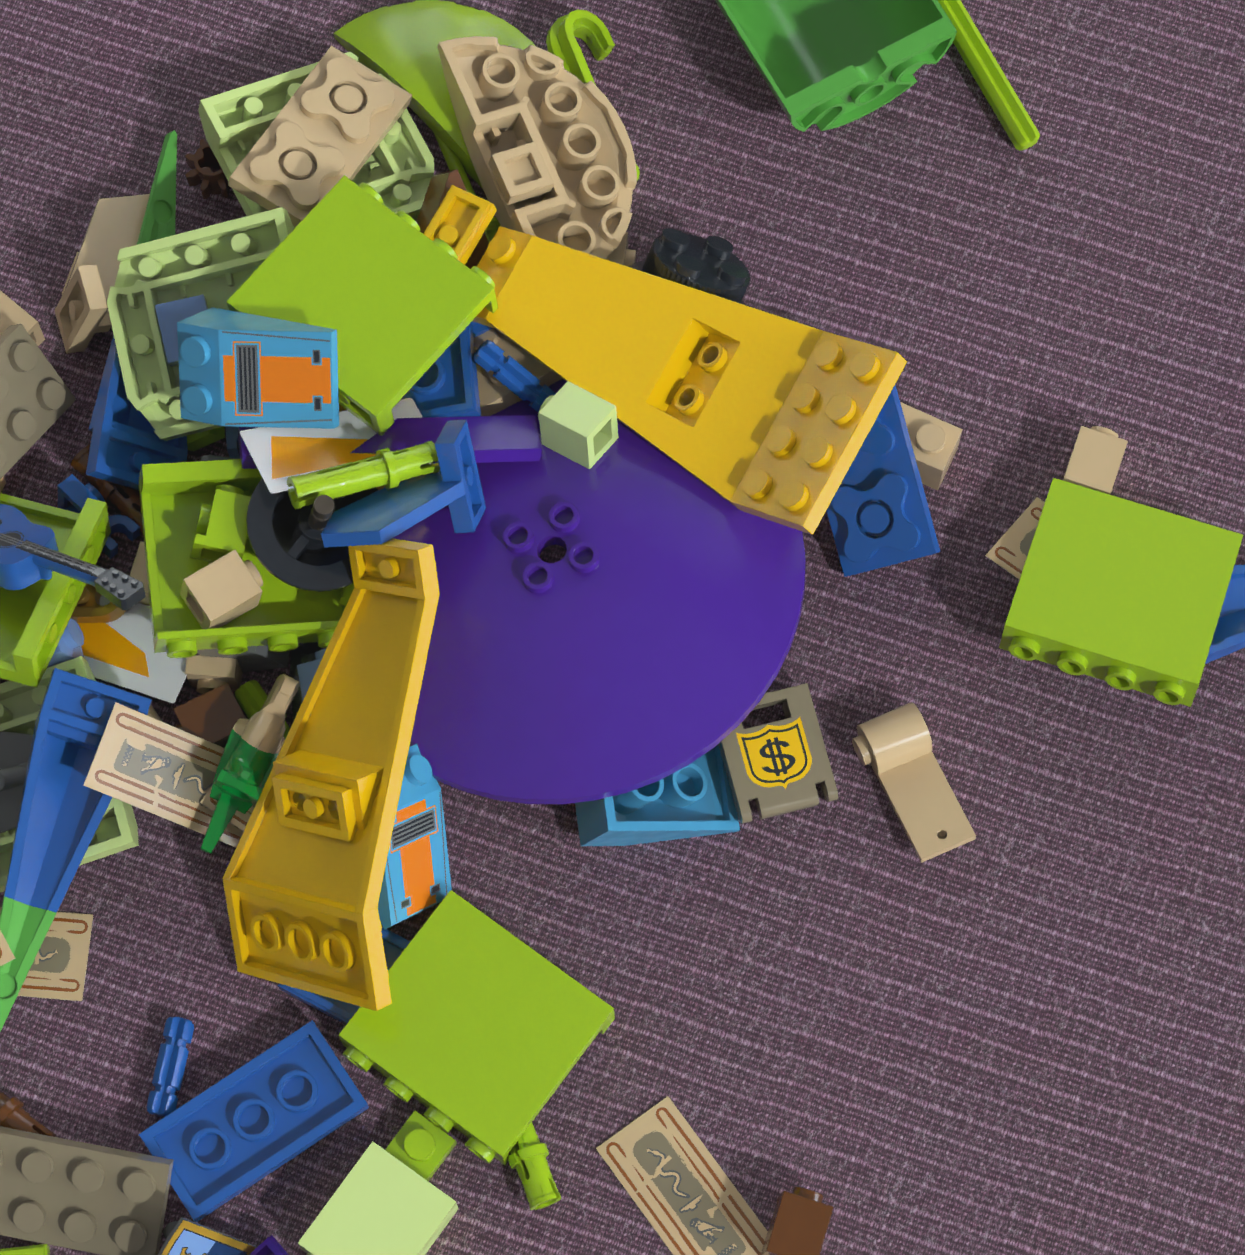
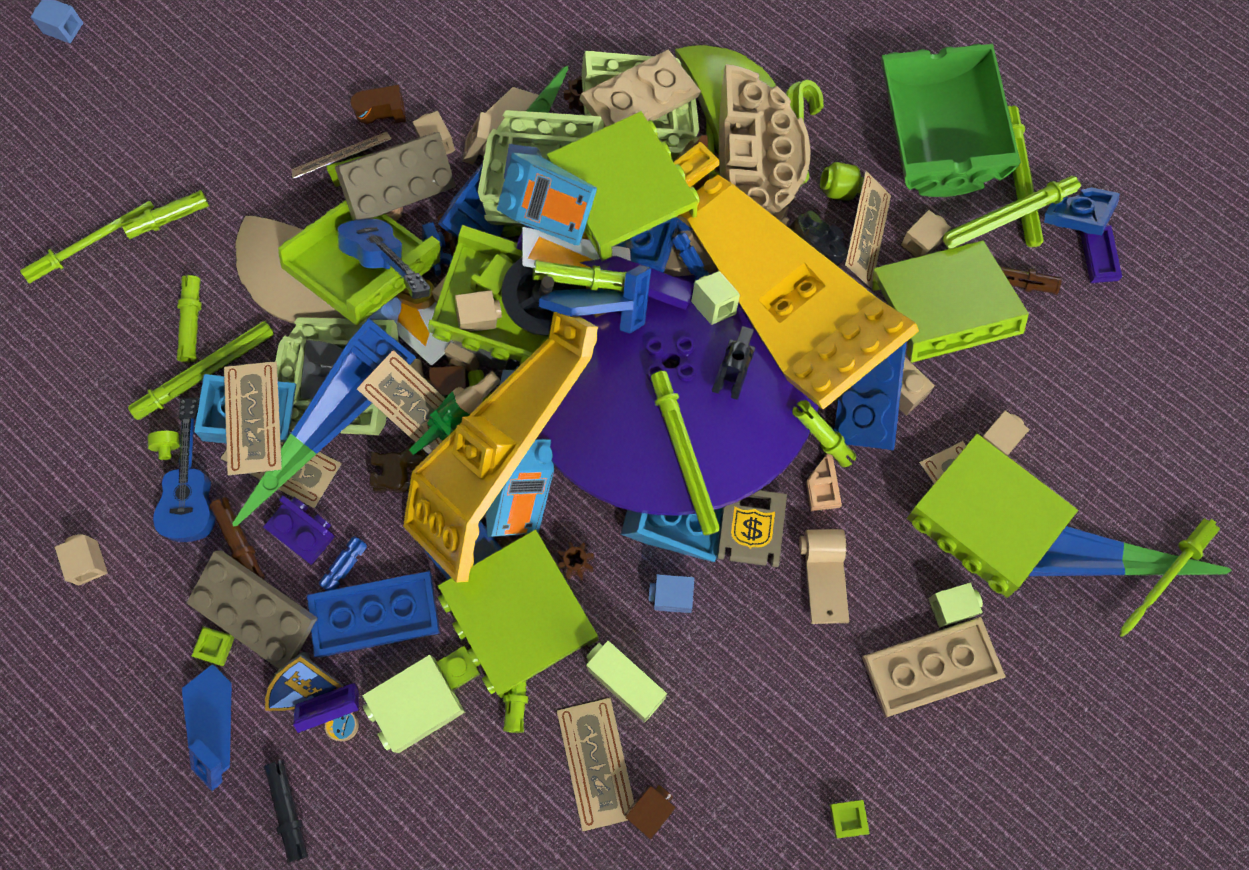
camera: 25 degrees right, 0 degrees up
(77, 1041) = (298, 530): none -> dark purple bracket
(184, 882) = (394, 466): none -> dark brown animal
(518, 908) = (572, 553): none -> reddish brown gear
(633, 680) = (671, 412): none -> lime axle
(653, 515) = (735, 363): none -> black hinge
(682, 1057) = (625, 680): none -> yellowish green brick
(692, 156) = (841, 181): none -> lime head
(697, 902) = (672, 593): none -> medium blue brick
(765, 220) = (868, 229): none -> sticker
(842, 576) = (831, 441): none -> lime pin
(856, 649) = (823, 486): none -> light nougat tile
(857, 194) = (925, 234): none -> tan brick
(935, 285) = (953, 298): none -> lime panel
(1020, 209) = (1049, 283): none -> reddish brown pin
(1024, 54) = (1052, 193): none -> lime axle
(1083, 63) = (1084, 212): none -> blue plate
(1088, 1120) = (849, 819): none -> lime plate
(1121, 747) = (956, 604): none -> yellowish green brick
(1123, 853) = (933, 667): none -> tan piece
(1134, 120) = (1101, 256): none -> dark purple tile

